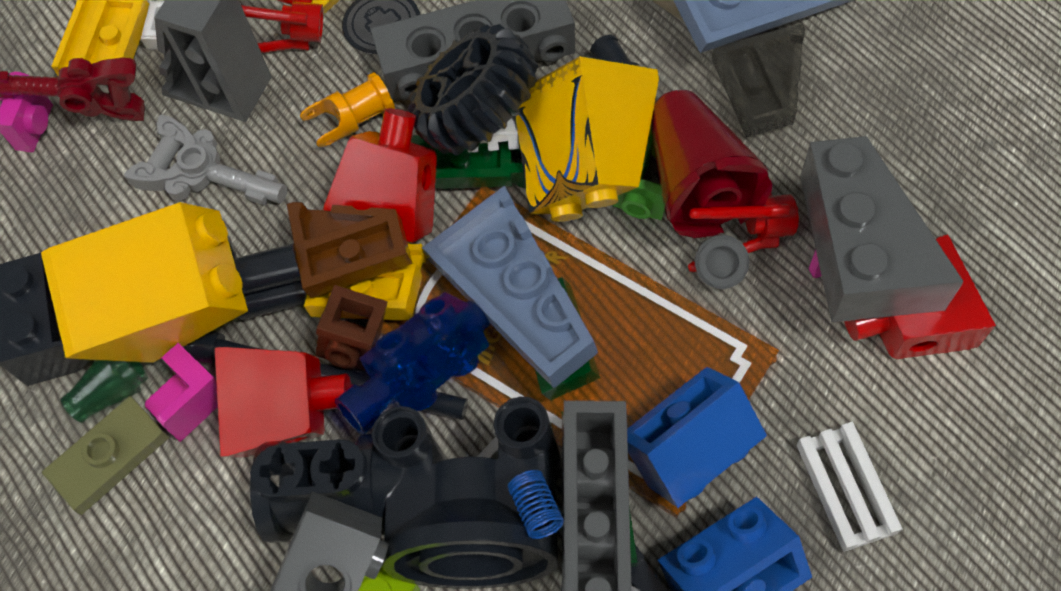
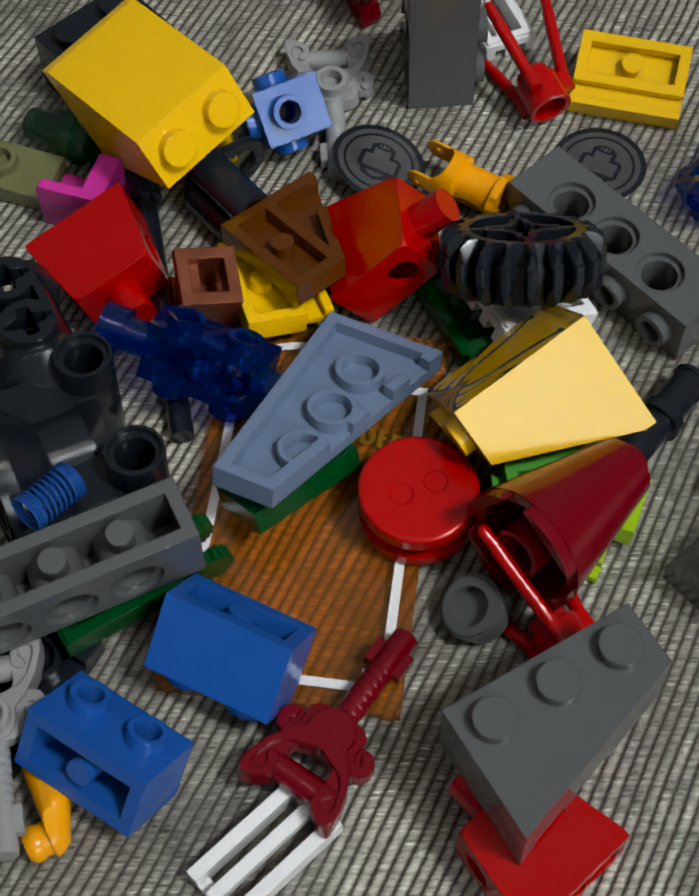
camera: 60 degrees right, 5 degrees down
(210, 187) = (300, 106): none -> brick
(288, 161) = (373, 154): none -> sticker
(620, 258) = (417, 500): none -> red head
(786, 398) = (330, 738): none -> dark red piece

